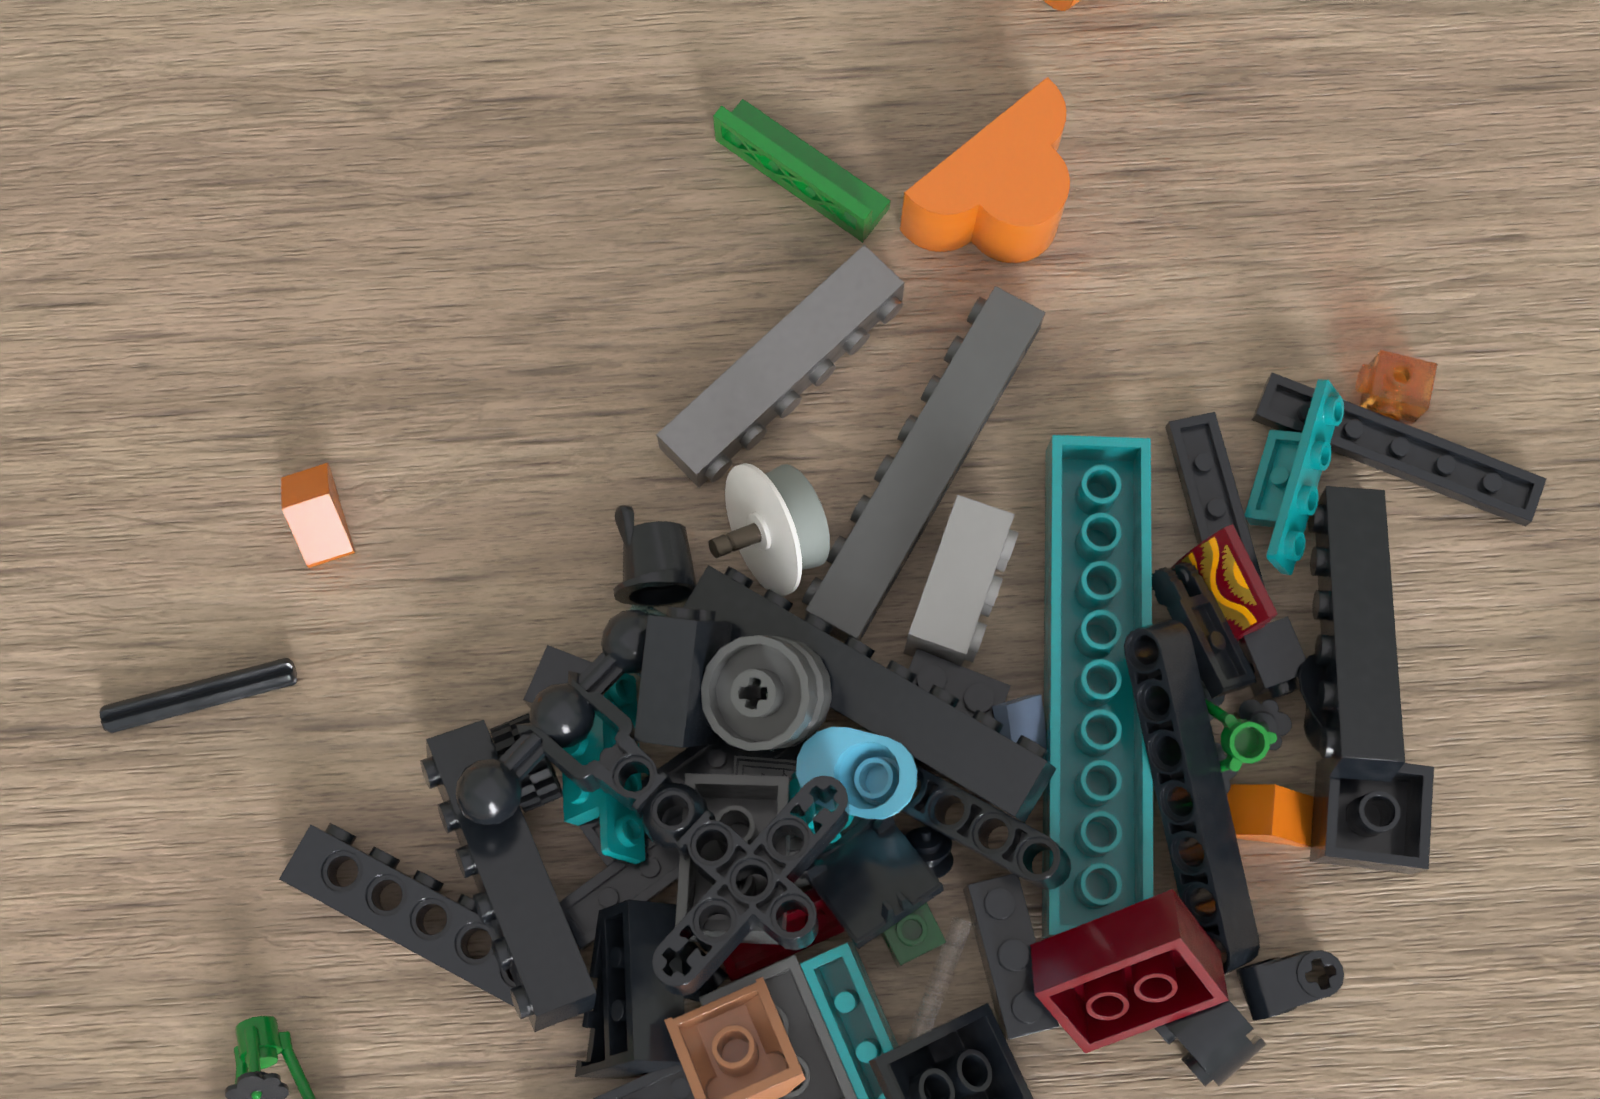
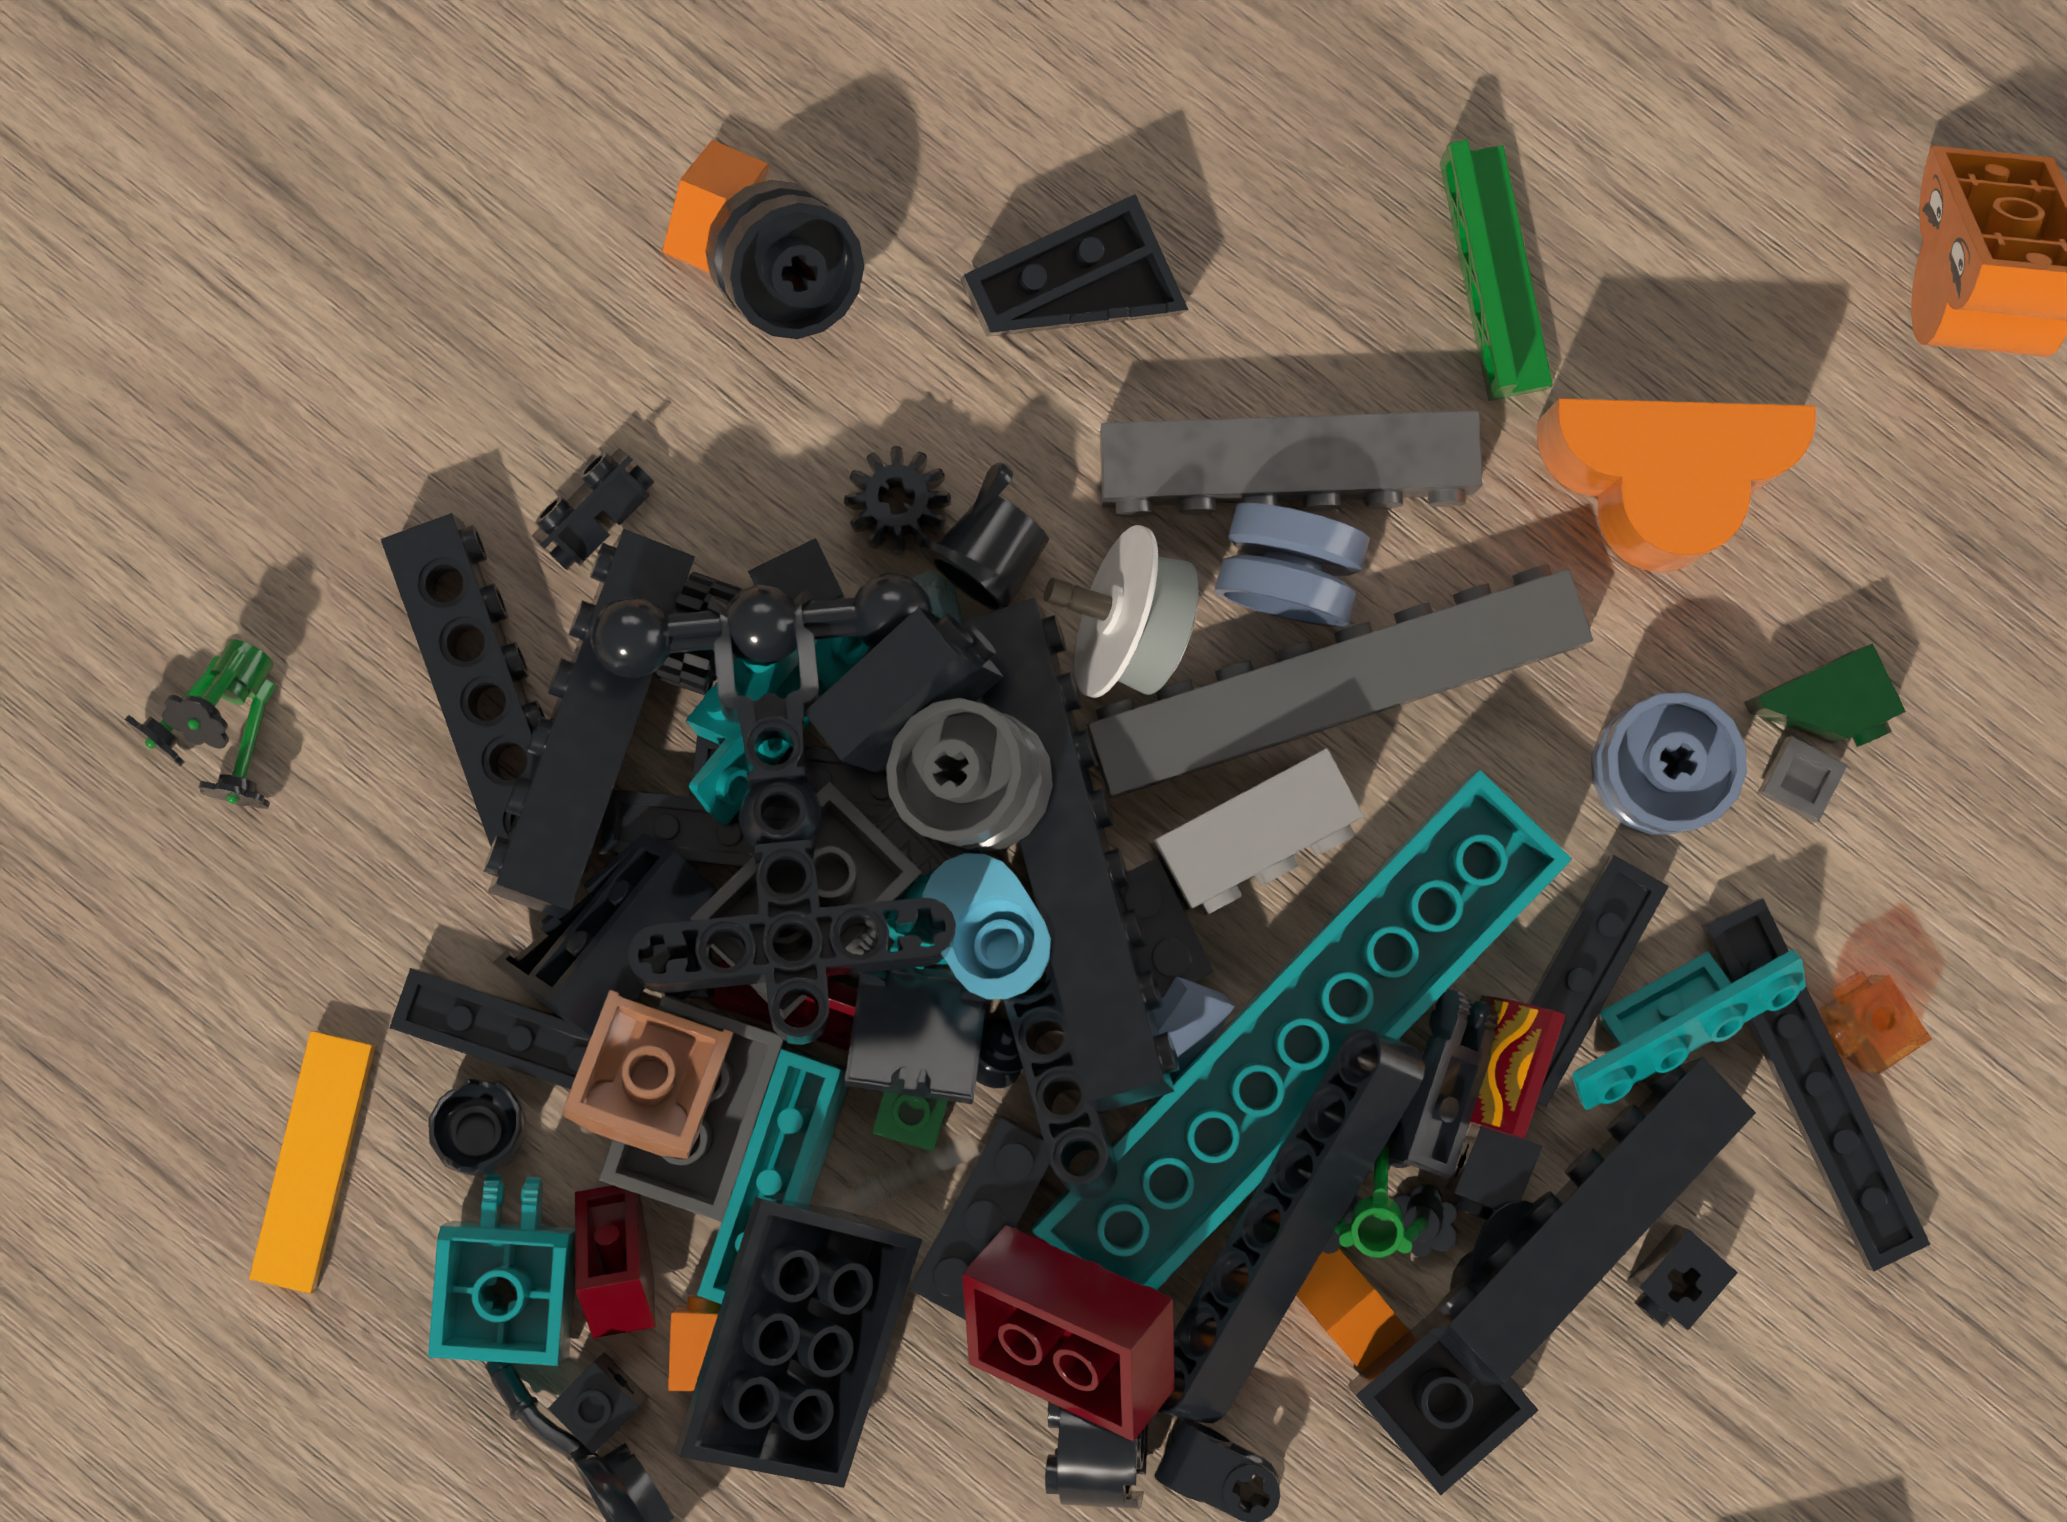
camera: 40 degrees right, 10 degrees up
(198, 695) = (456, 290): black axle -> none
(385, 500) = (784, 259): none -> black wheel
(390, 768) = (605, 488): none -> black hinge
(568, 367) = (1078, 276): none -> black wedge
(580, 567) = (880, 513): none -> black gear
(839, 417) = (1292, 564): none -> sand blue wheel
(1150, 344) = (1705, 757): none -> sand blue wheel
(1206, 233) = (1835, 700): none -> dark green slope
(1229, 291) = (1802, 779): none -> flat silver plate
(1446, 611) = (1703, 1273): none -> black brick

